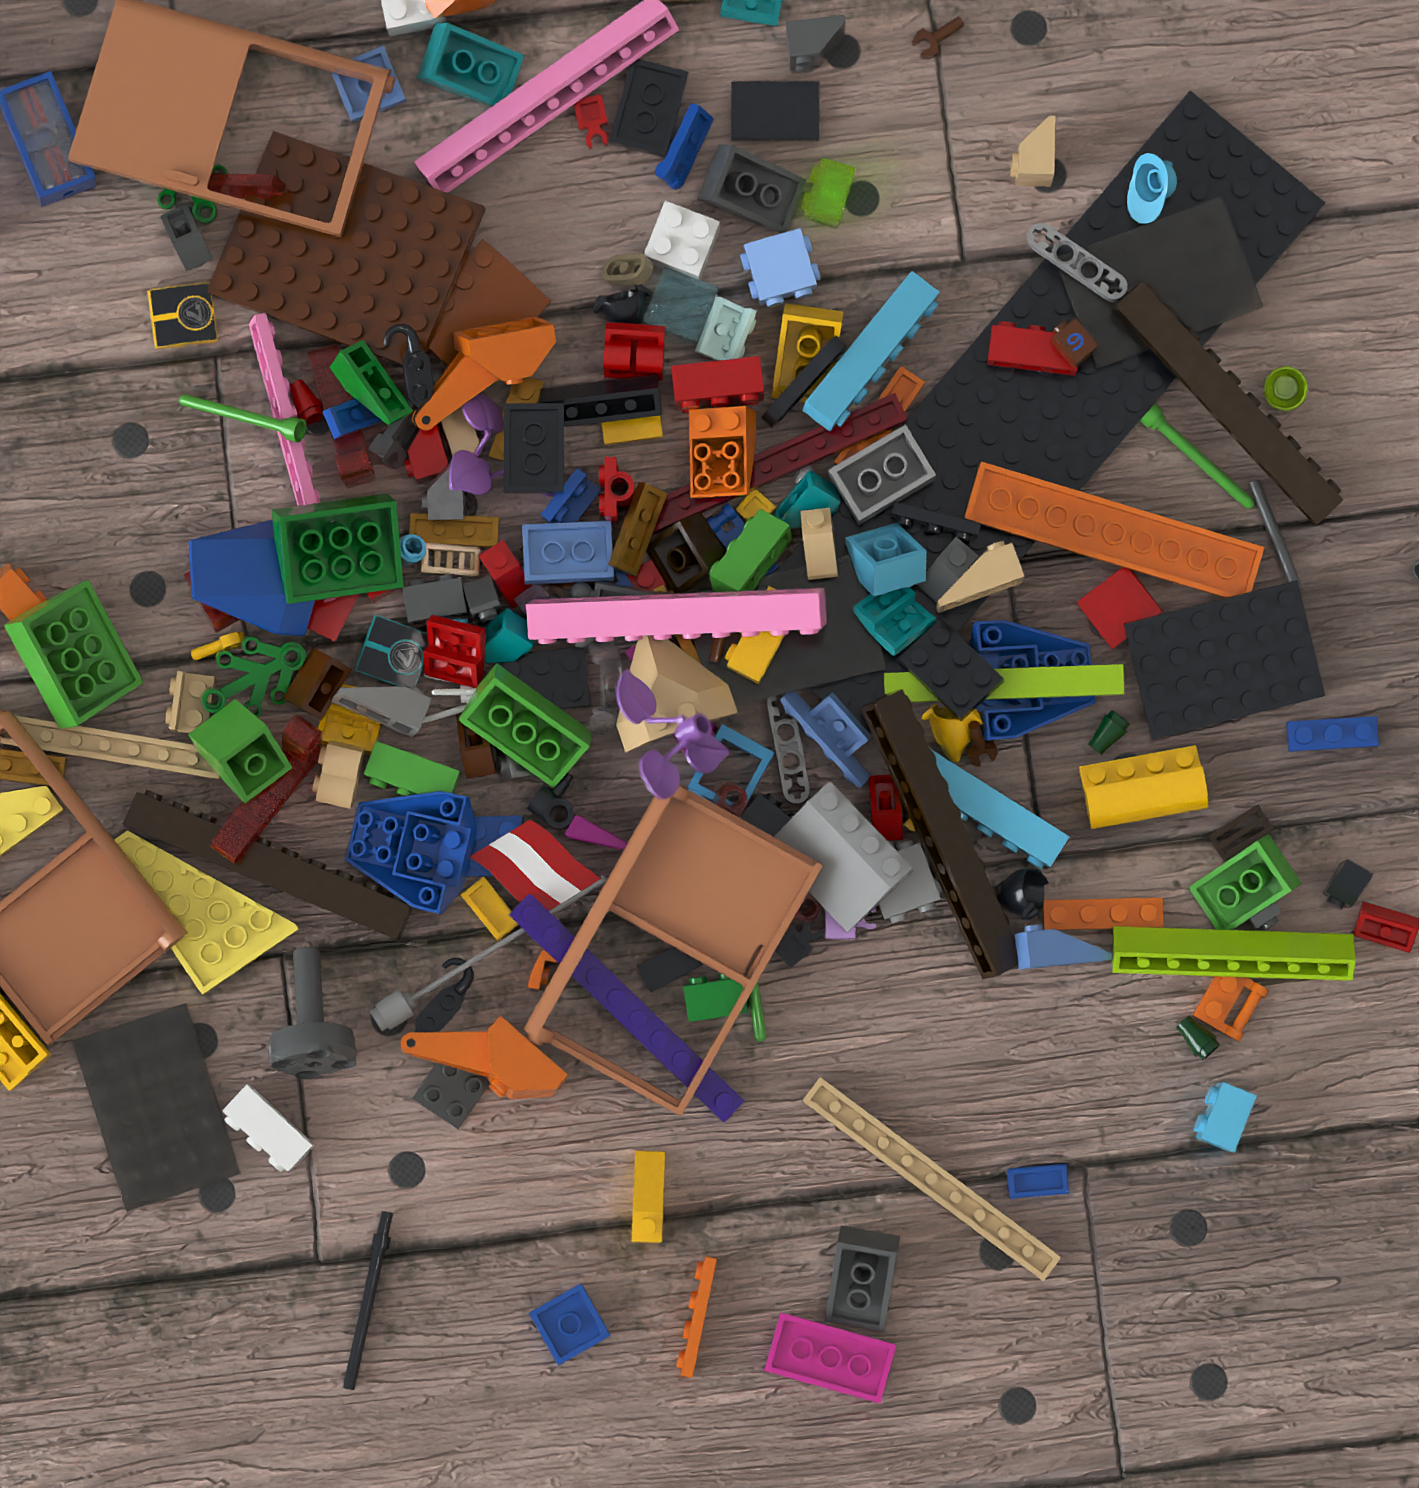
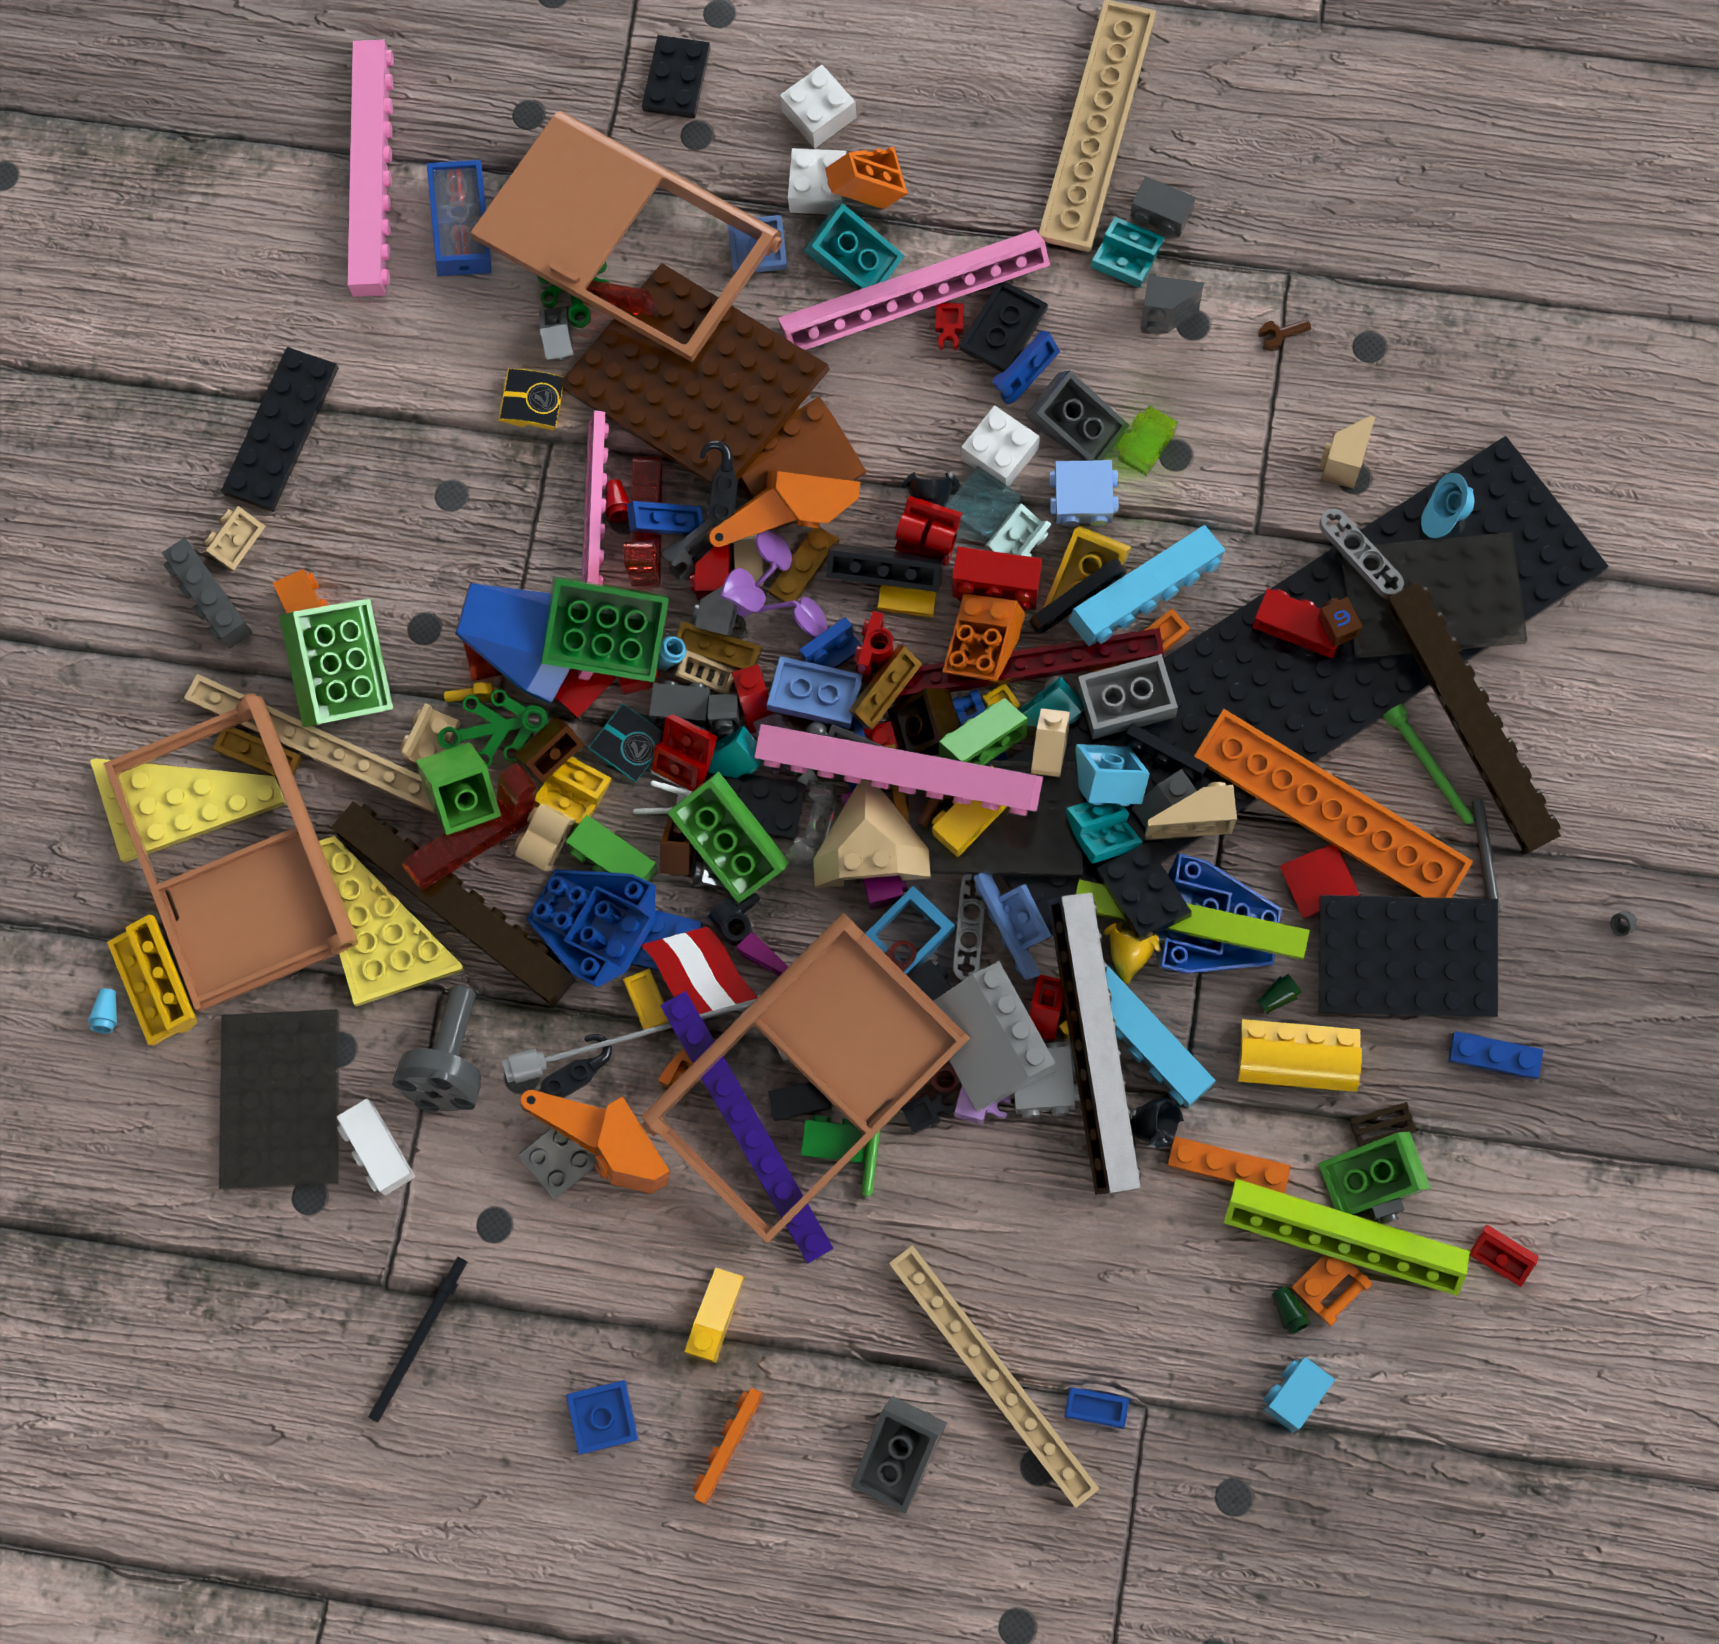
camera: 15 degrees right, 10 degrees down
(292, 428) = (595, 514): bright green piece -> none
(369, 383) = (677, 490): green slope -> none
(393, 707) = (609, 786): light grey slope -> none
(533, 448) = (810, 587): black plate -> none
(627, 269) = (943, 458): dark tan plate -> none
(702, 750) = (836, 904): medium lavender plant -> none
(774, 110) = (1117, 359): black tile -> none
(830, 1357) = (845, 1524): dark pink plate -> none
(979, 745) = (1152, 972): reddish brown bar -> none
(1053, 948) = (1173, 1183): medium blue slope -> none
(1285, 388) = (1530, 722): lime hair -> none
(1346, 884) = (1475, 1200): black slope -> none

